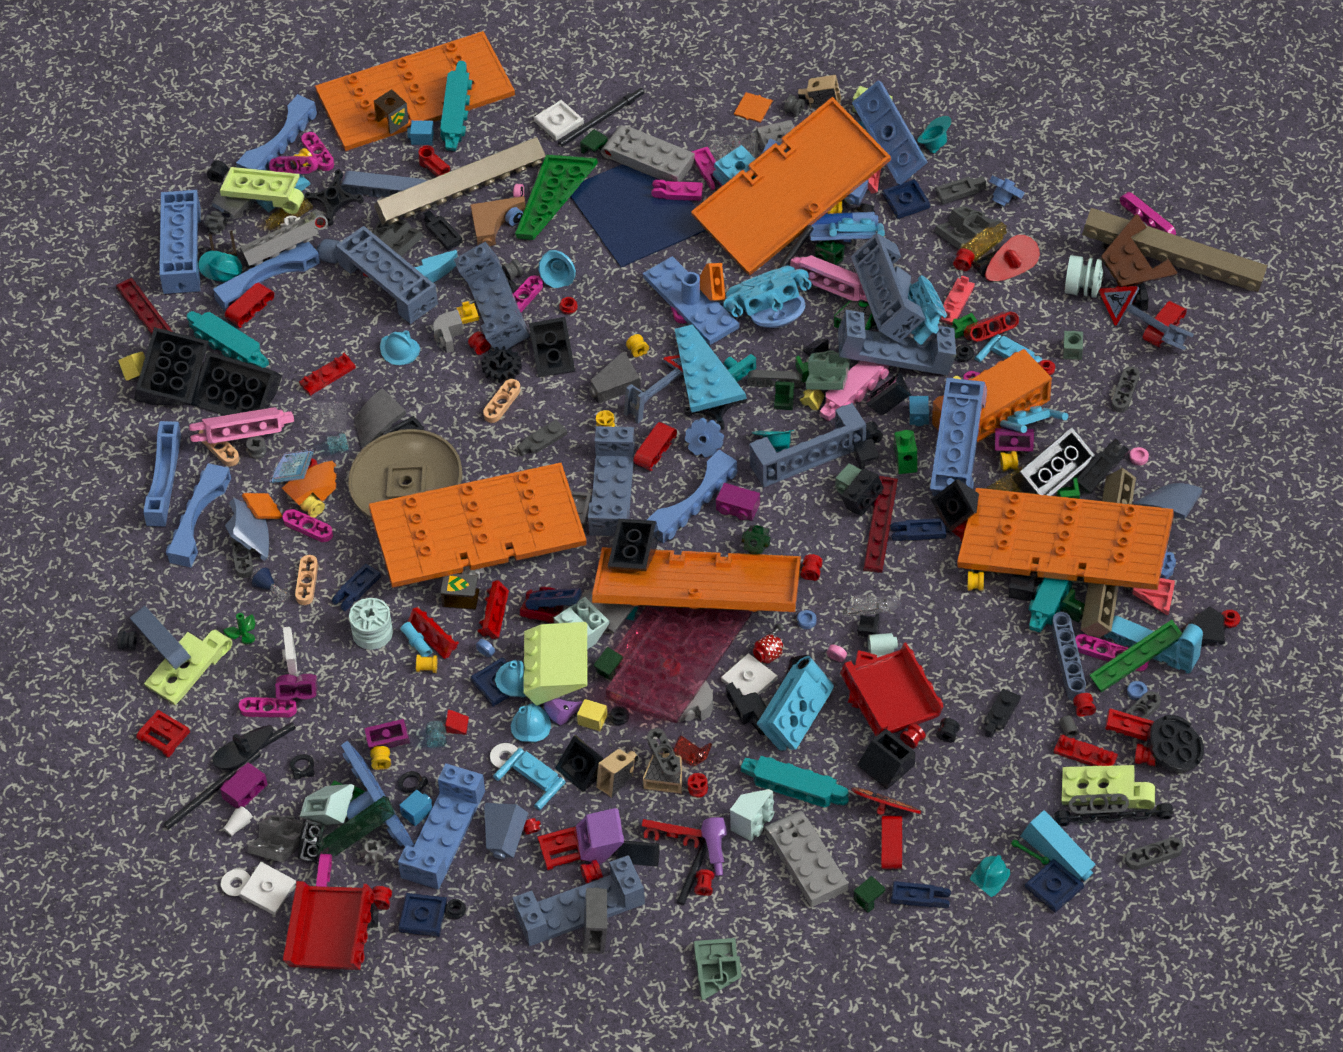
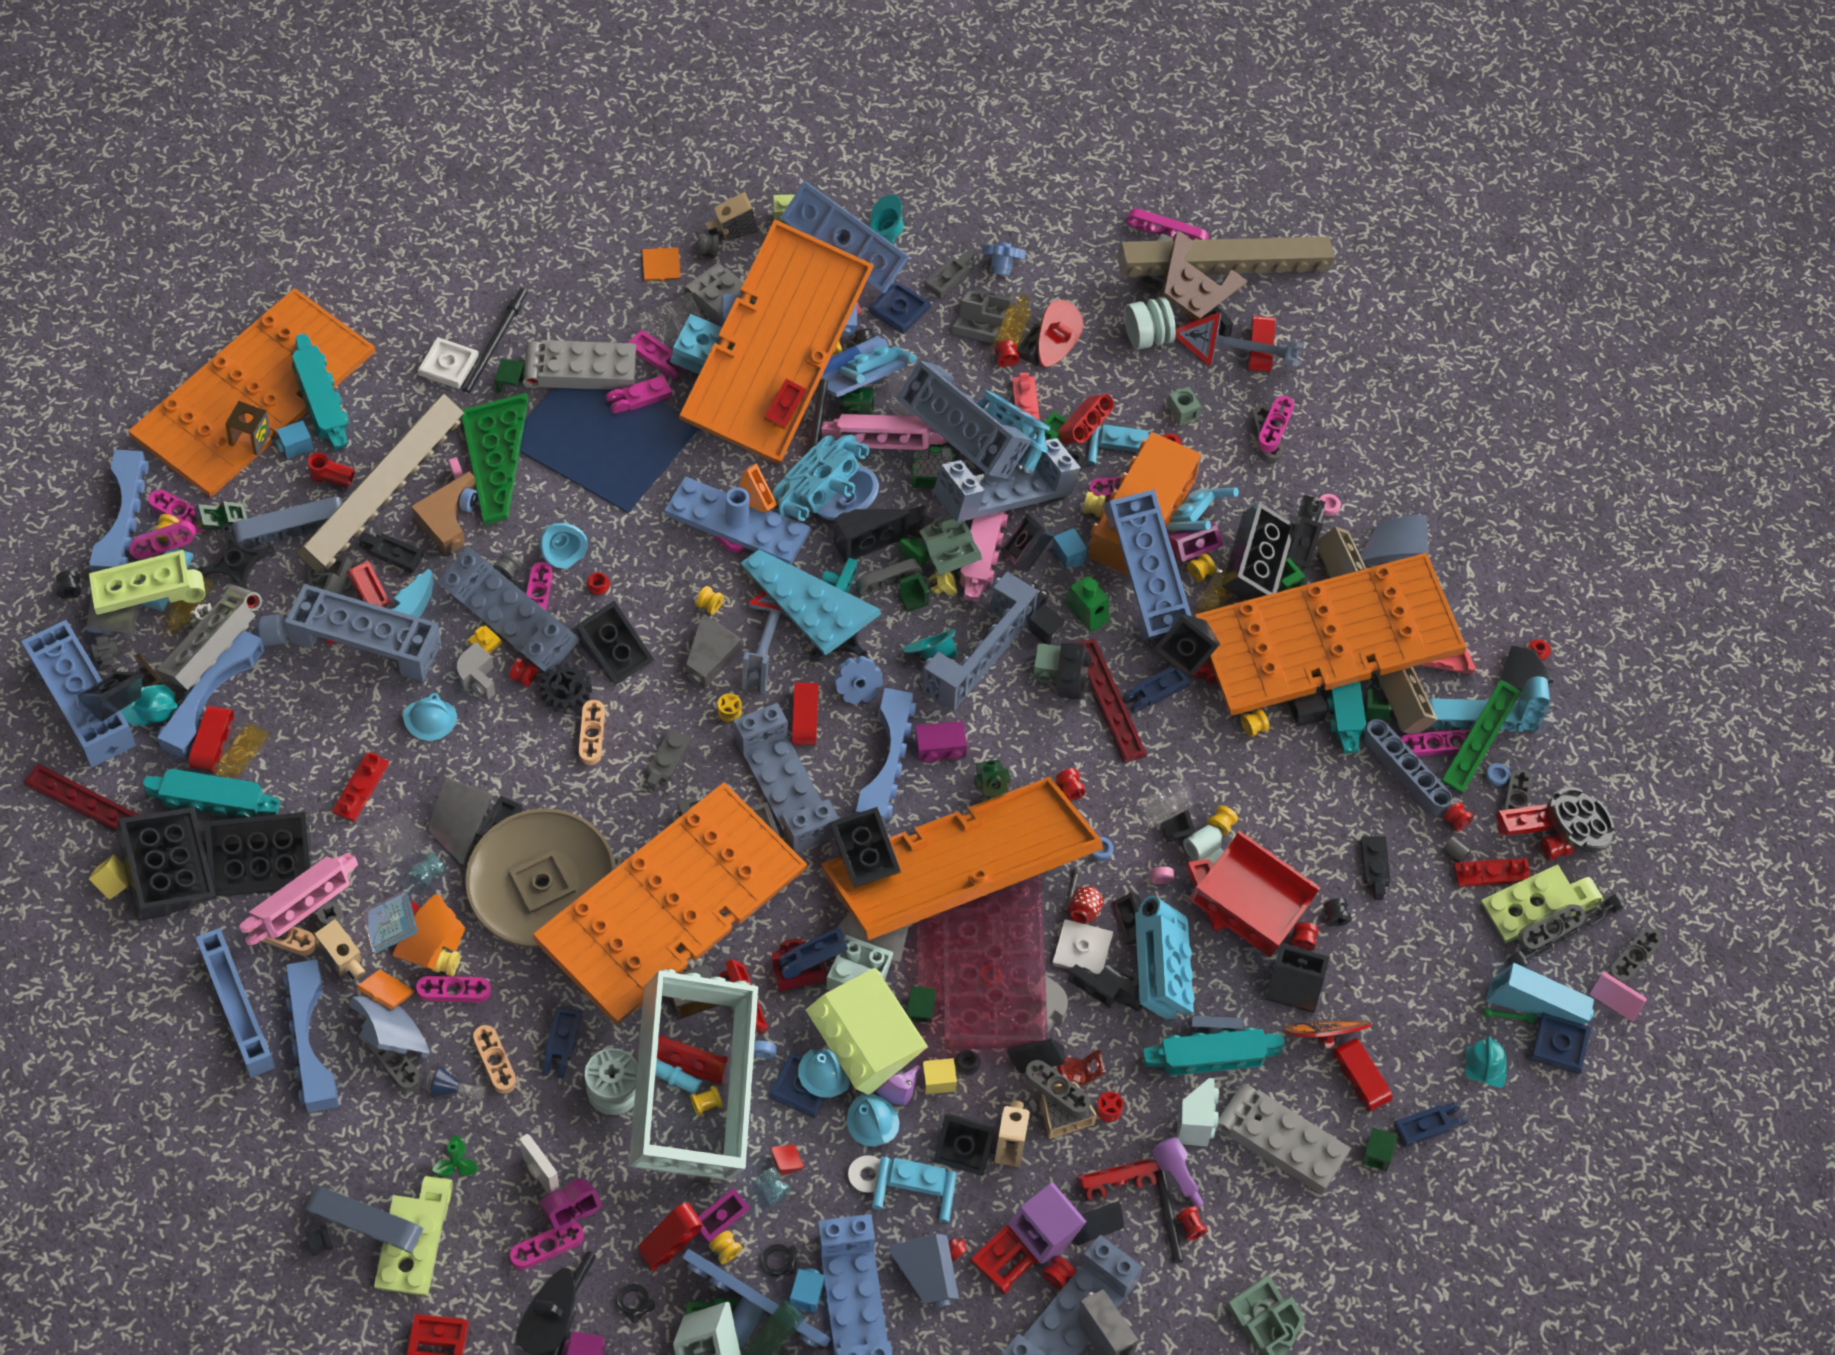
camera: 35 degrees left, 5 degrees up
(196, 248) = (112, 694): none -> black slope
(246, 468) = (339, 950): none -> tan torso
(265, 321) = (242, 751): none -> clear yellow hinge
(335, 161) = (214, 517): none -> dark green slope
(349, 729) = (670, 1236): none -> red beam
(382, 689) = (714, 991): none -> light aqua door
(409, 245) = (367, 584): none -> tile
(671, 726) = (1046, 1050): none -> black slope
(771, 231) = (785, 404): none -> red plate
(778, 341) = (869, 530): none -> black slope
(809, 763) = (1216, 1023): none -> sand blue plate
(906, 635) = (1223, 819): none -> yellow wheel
(1120, 873) = (1618, 996): none -> bright pink slope
(1130, 390) = (1277, 432): none -> dark pink beam

